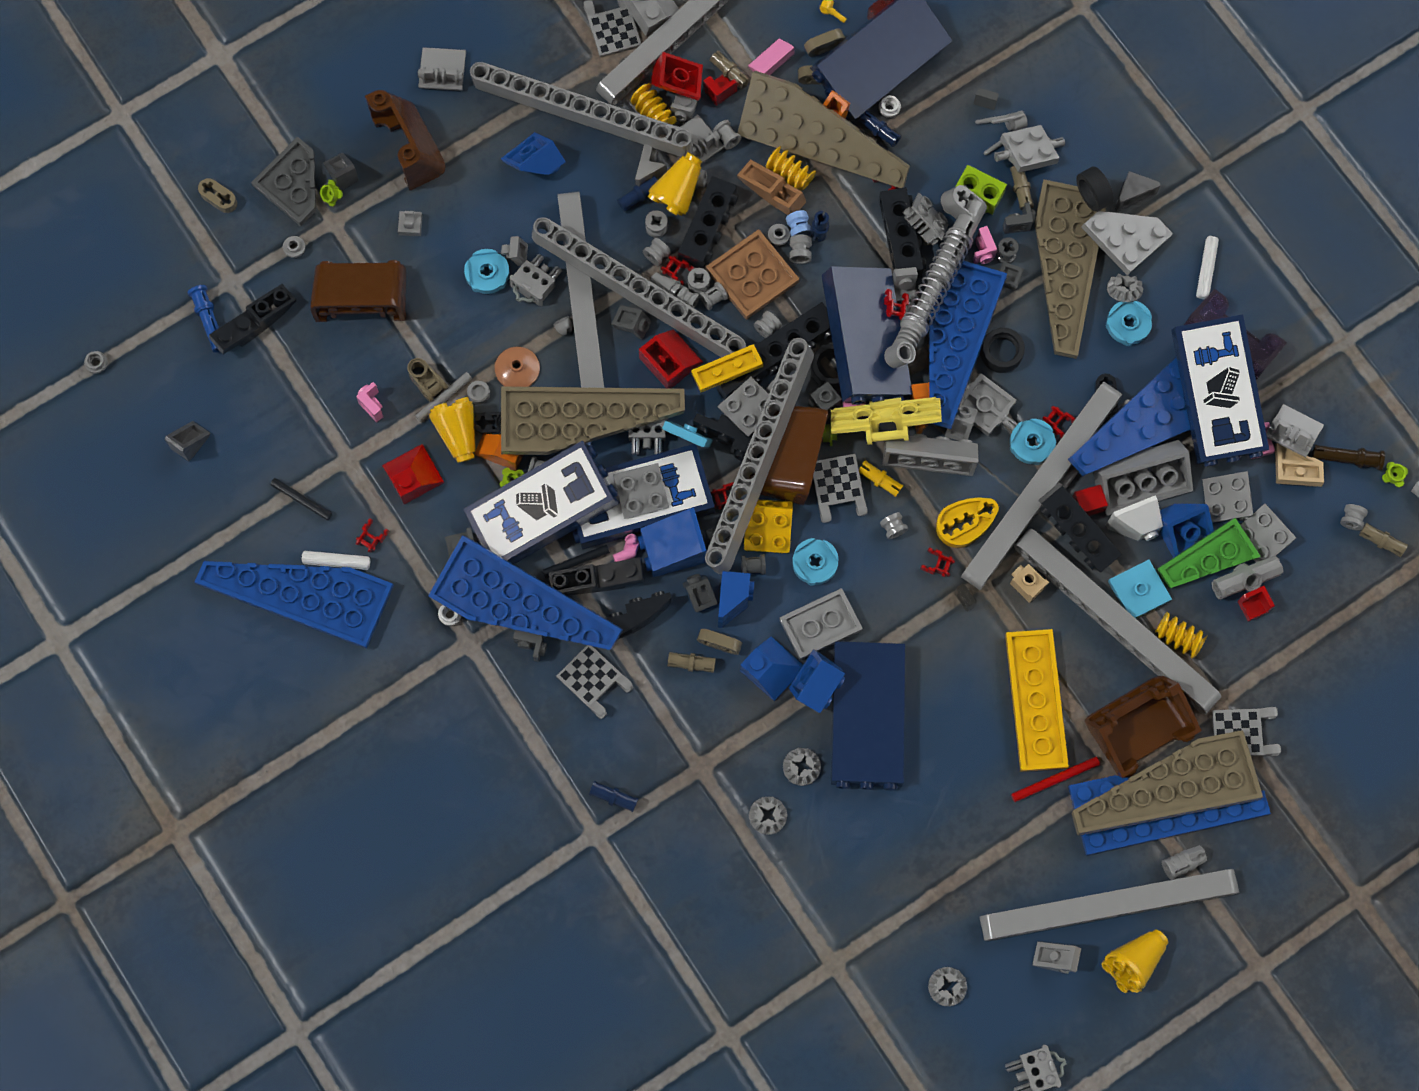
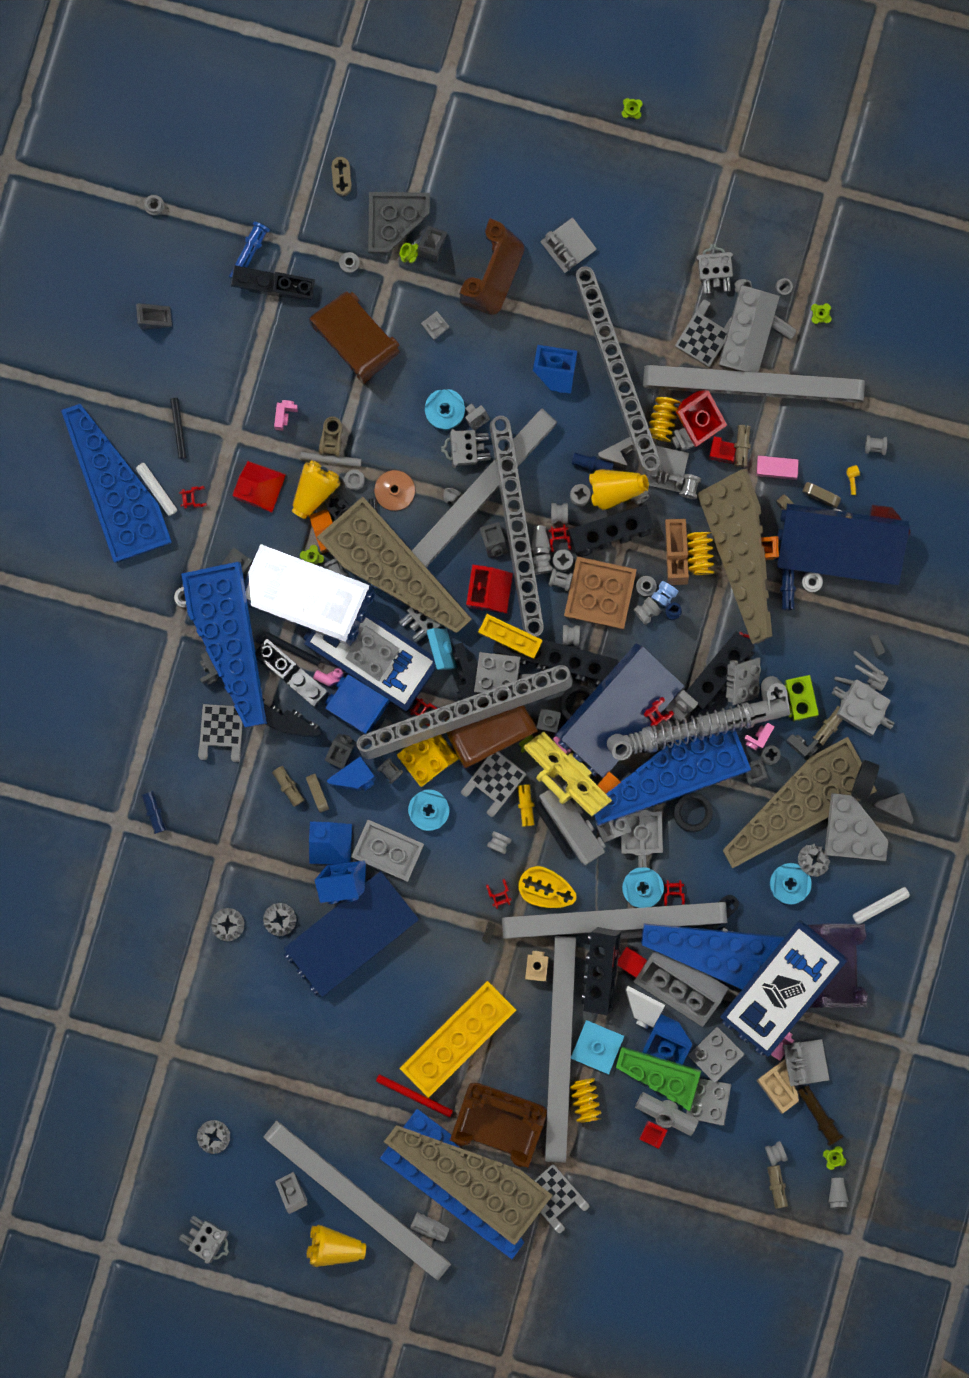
camera: 55 degrees right, 10 degrees up
(920, 474) = (553, 829): none -> black bar

